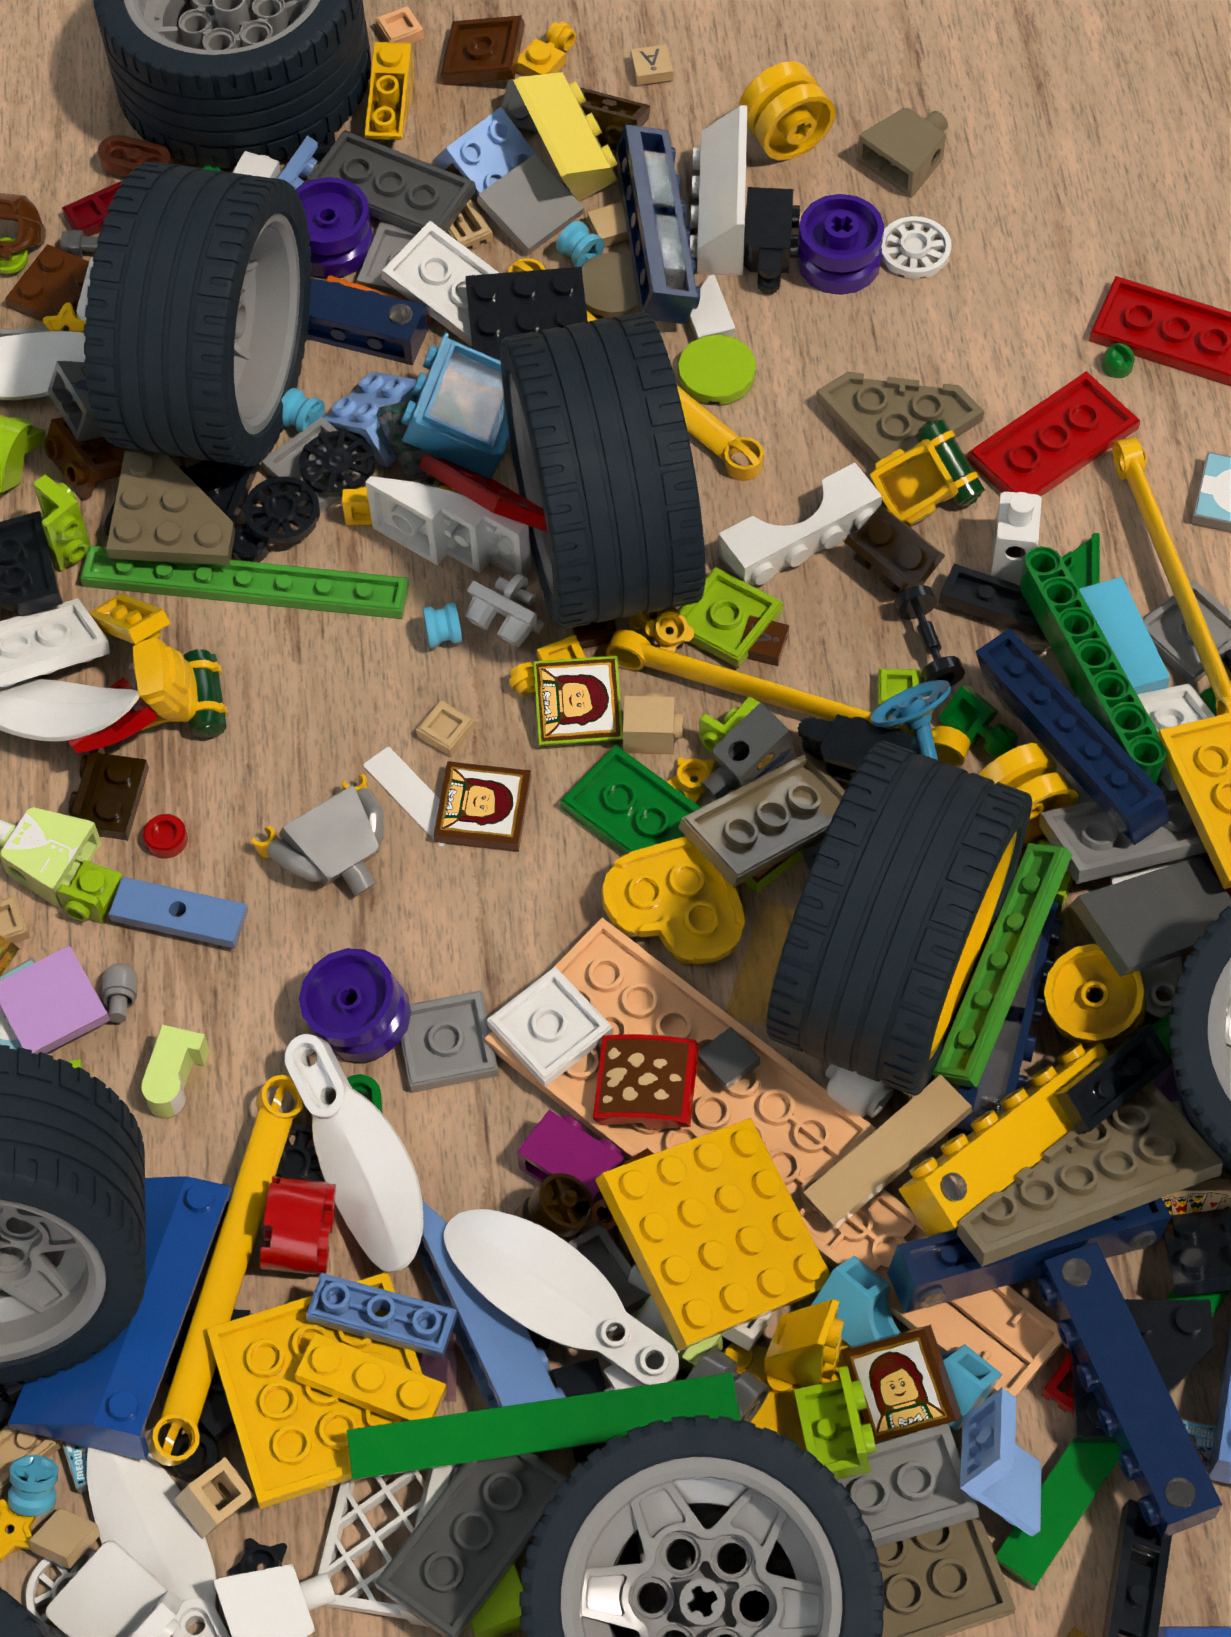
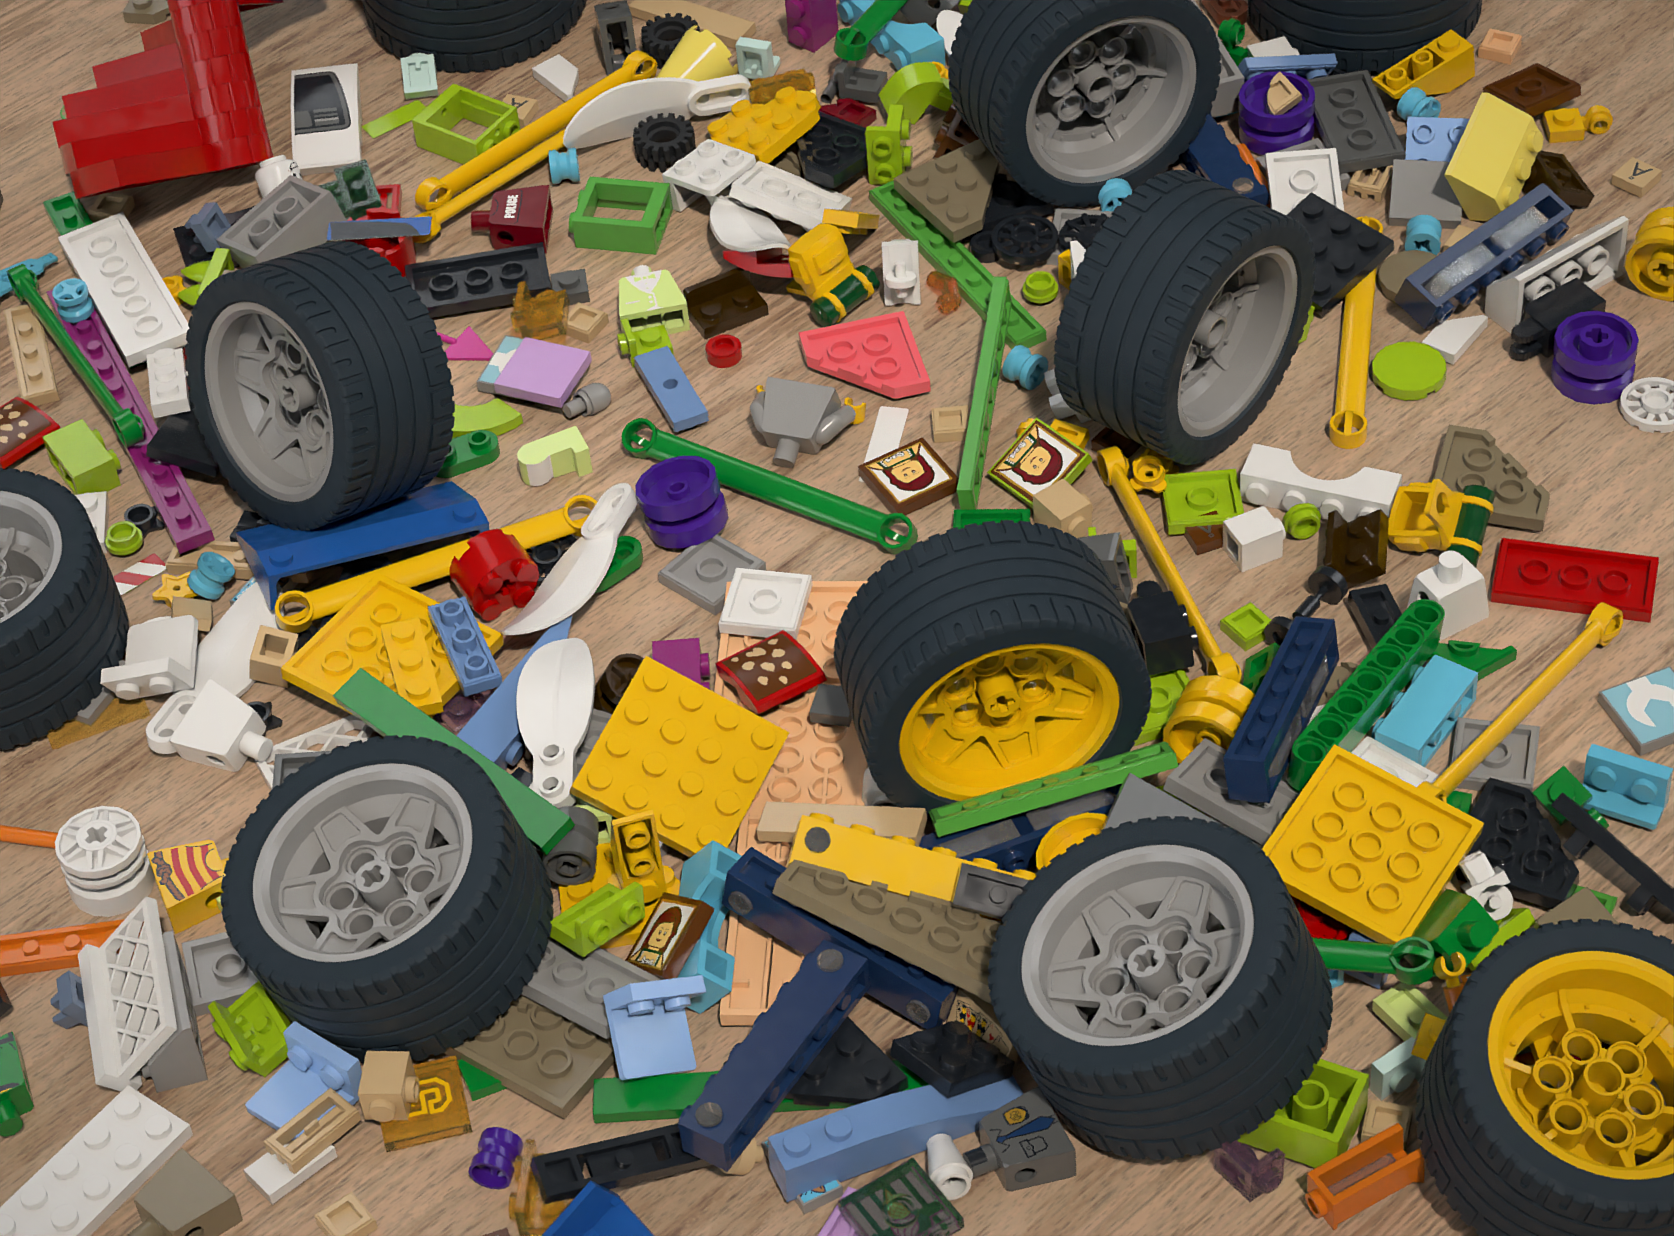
camera: 55 degrees right, 15 degrees down
(232, 627) = (901, 272): none -> white hips
(278, 608) = (949, 288): none -> clear orange arm
(299, 726) = (869, 353): none -> coral plate
(333, 207) = (1282, 95): none -> tan tile
(348, 543) = (1040, 287): none -> lime plate
(387, 921) = (775, 487): none -> green piece
(422, 133) = (1416, 104): none -> medium azure wheel
(453, 678) = (984, 395): none -> bright green tile
(813, 614) = (1253, 538): none -> white brick
(824, 566) = (1302, 520): none -> lime plate
(914, 712) = (1213, 627): dark azure dish -> none

